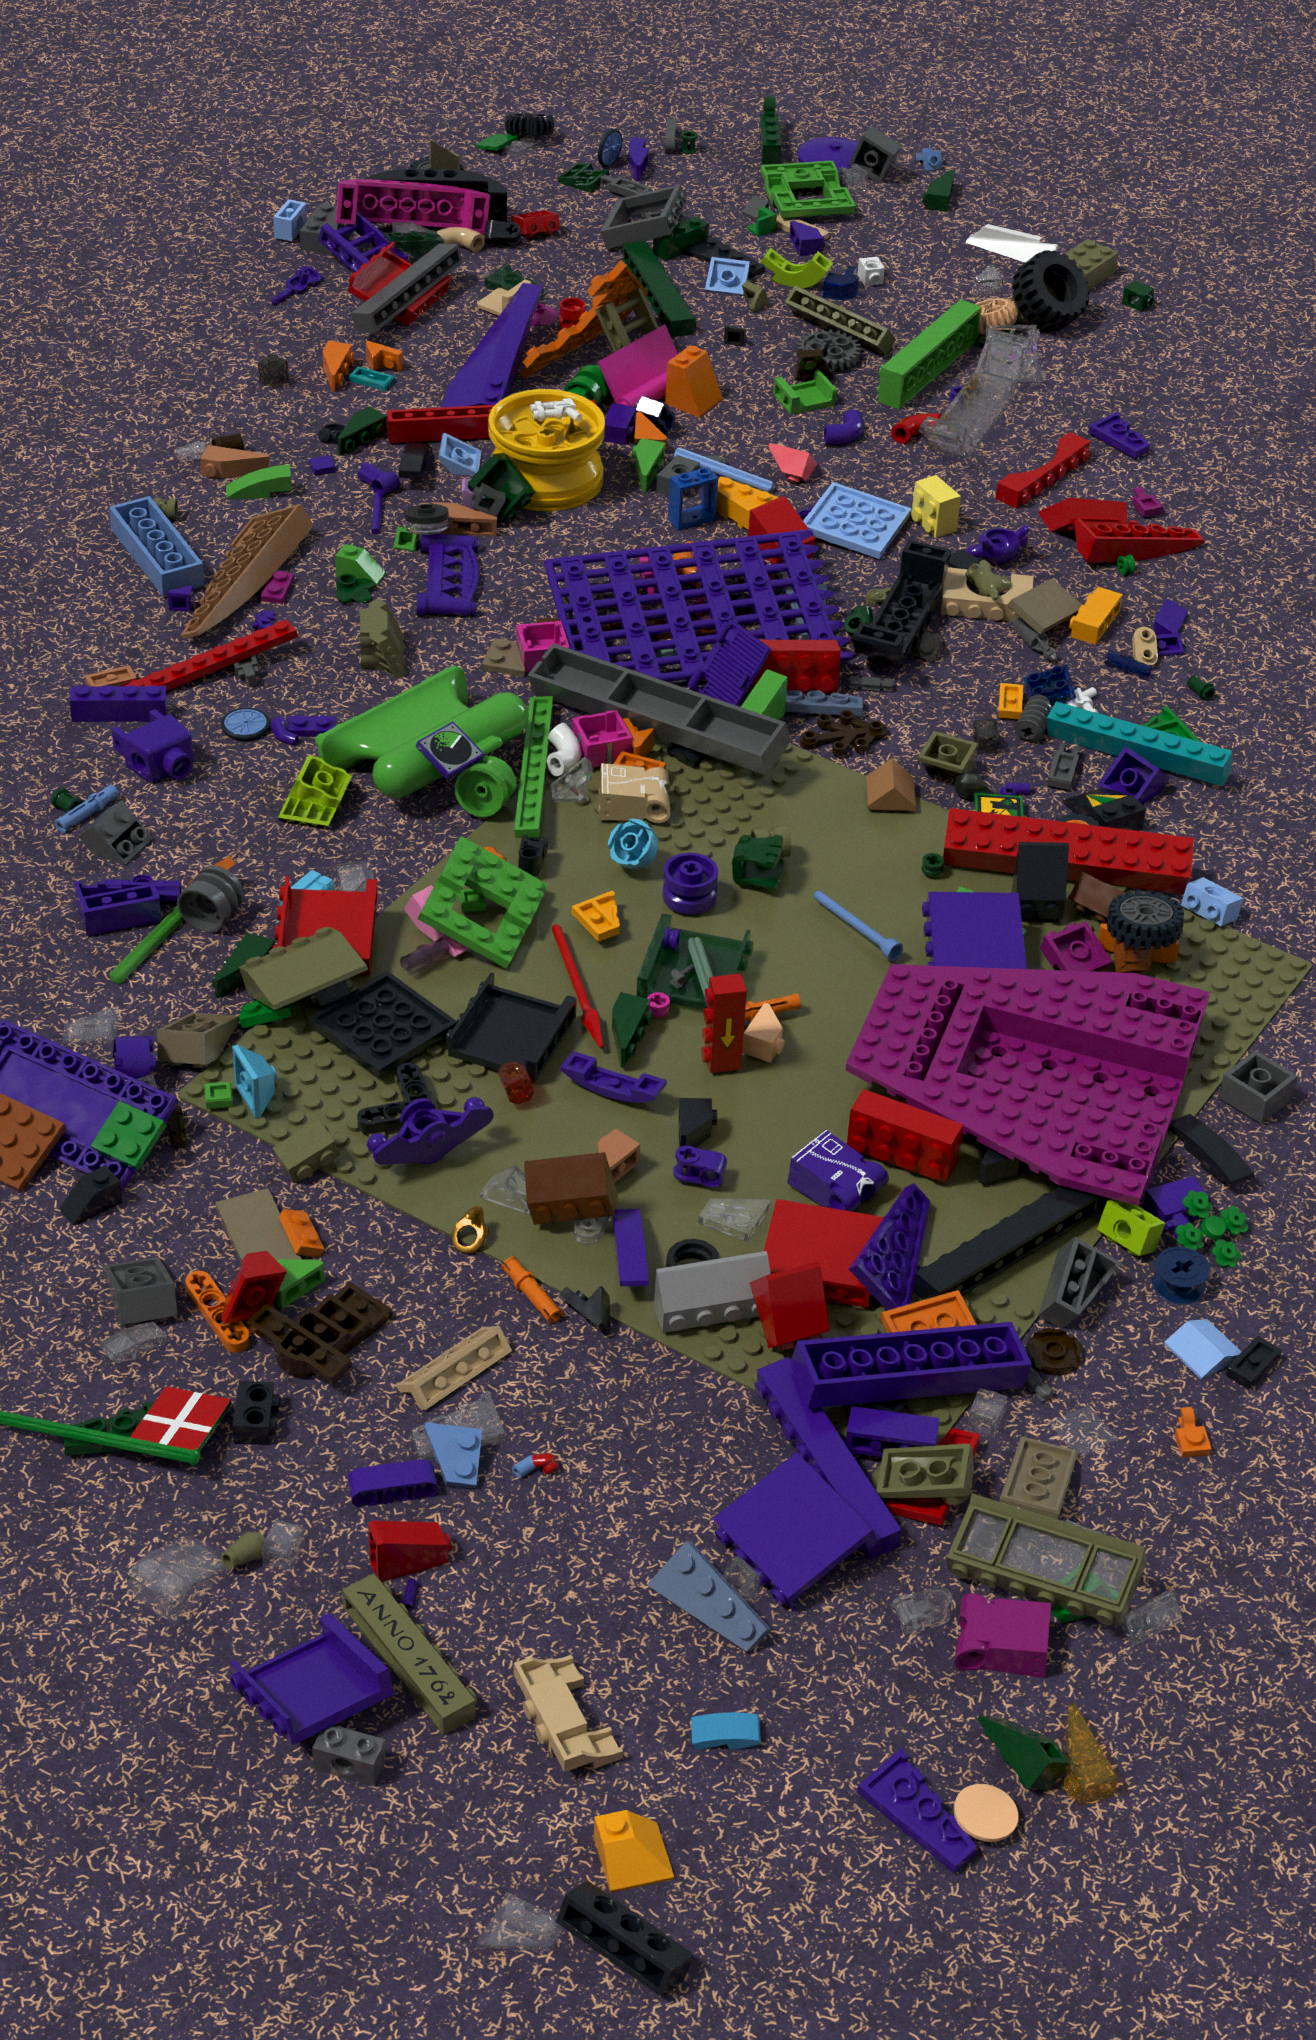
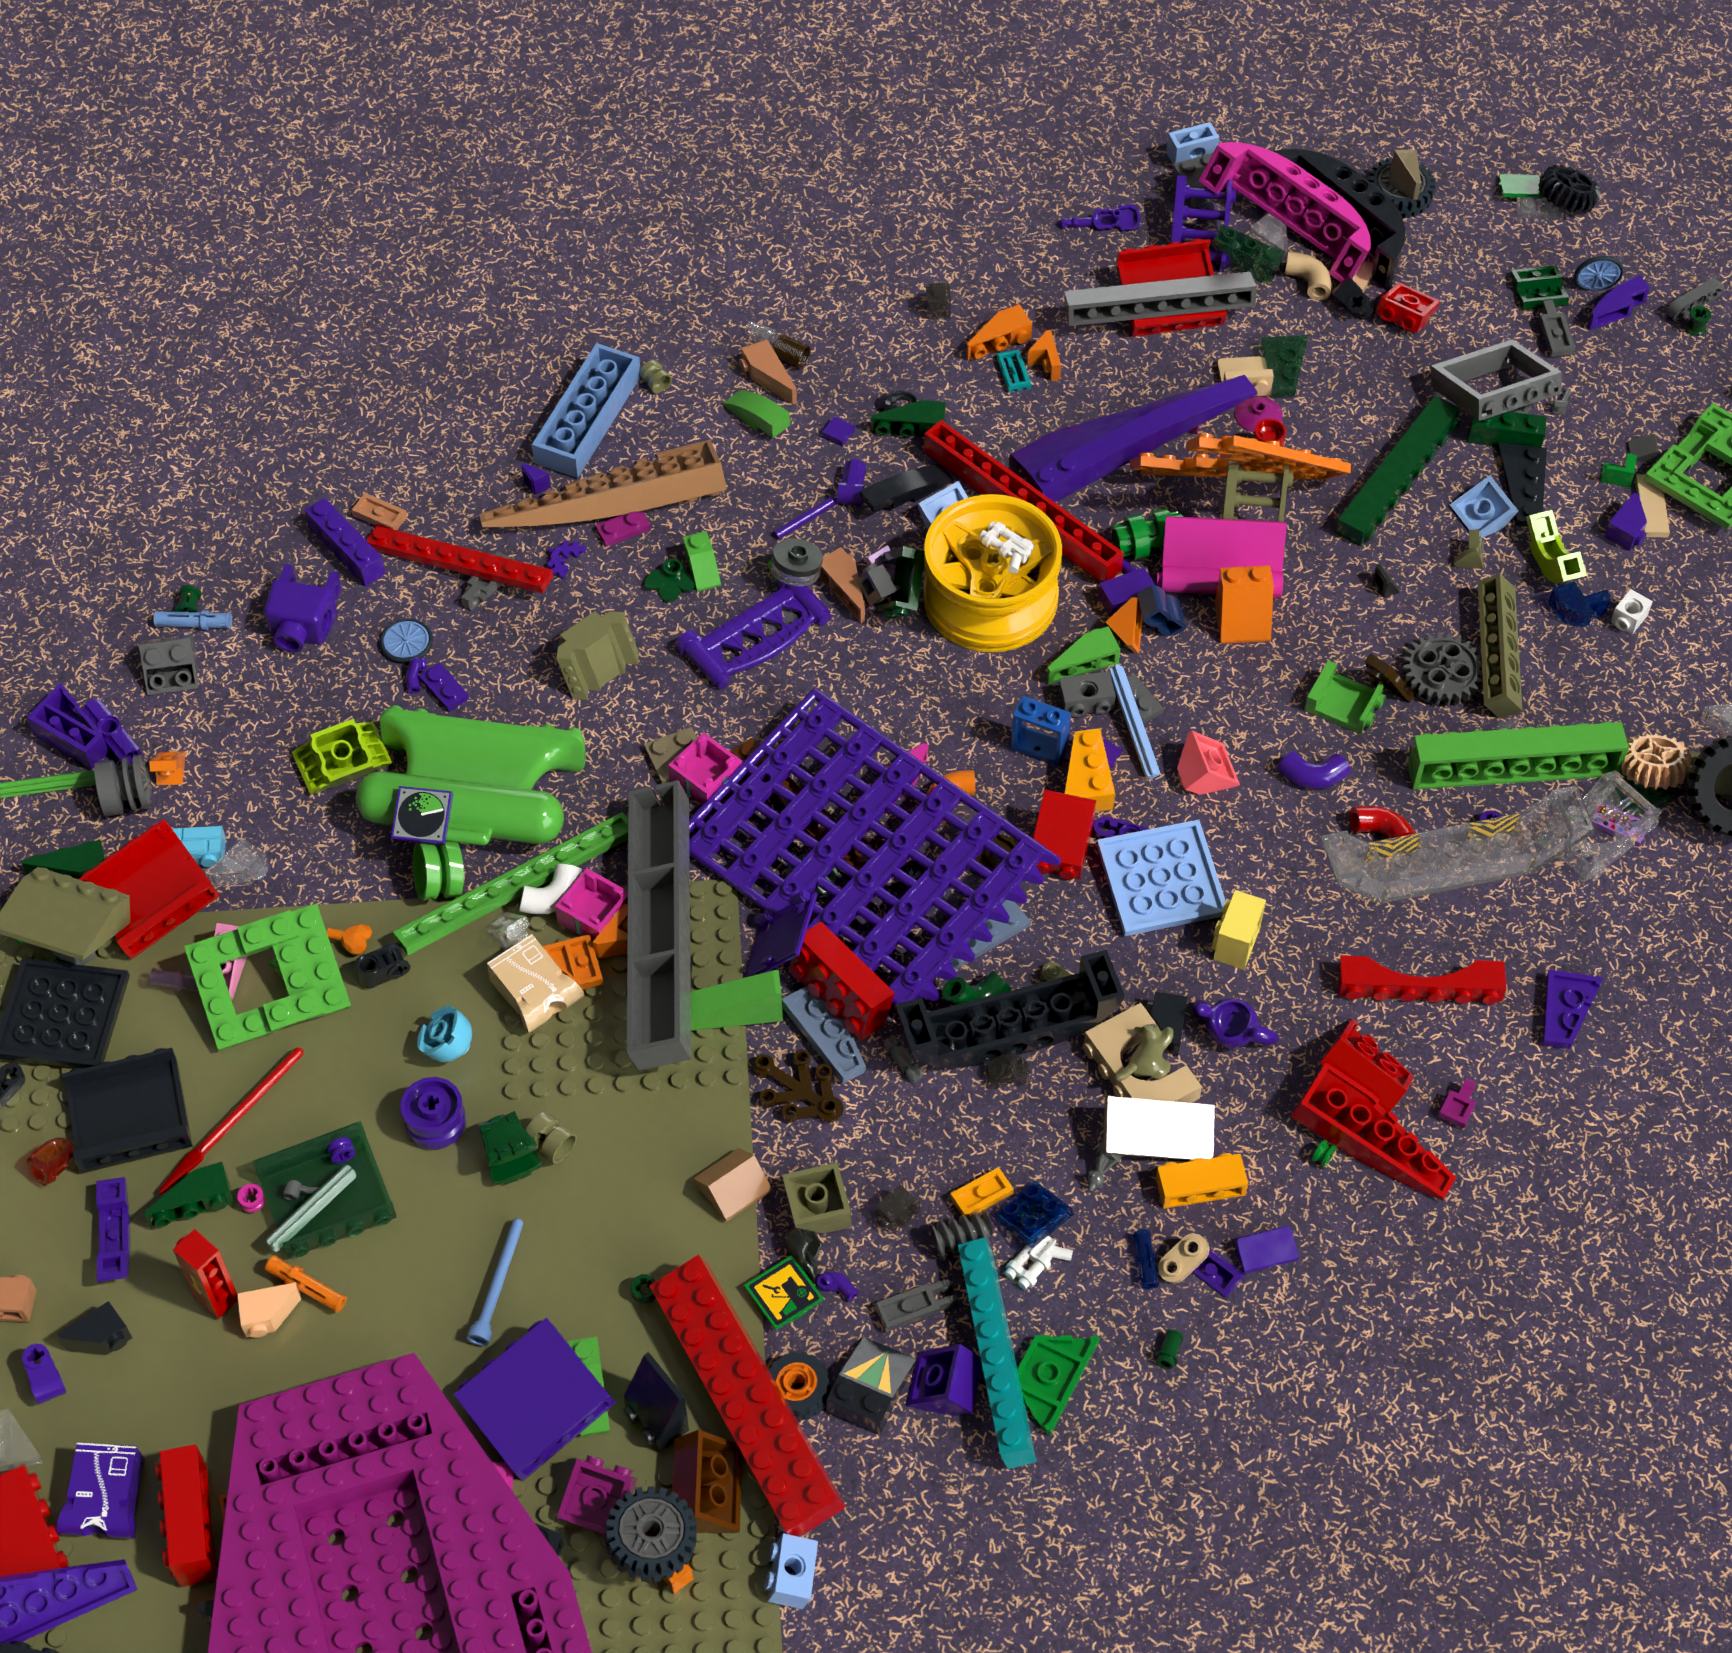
camera: 55 degrees right, 15 degrees up
(598, 916) = (337, 1073): light orange wing -> none

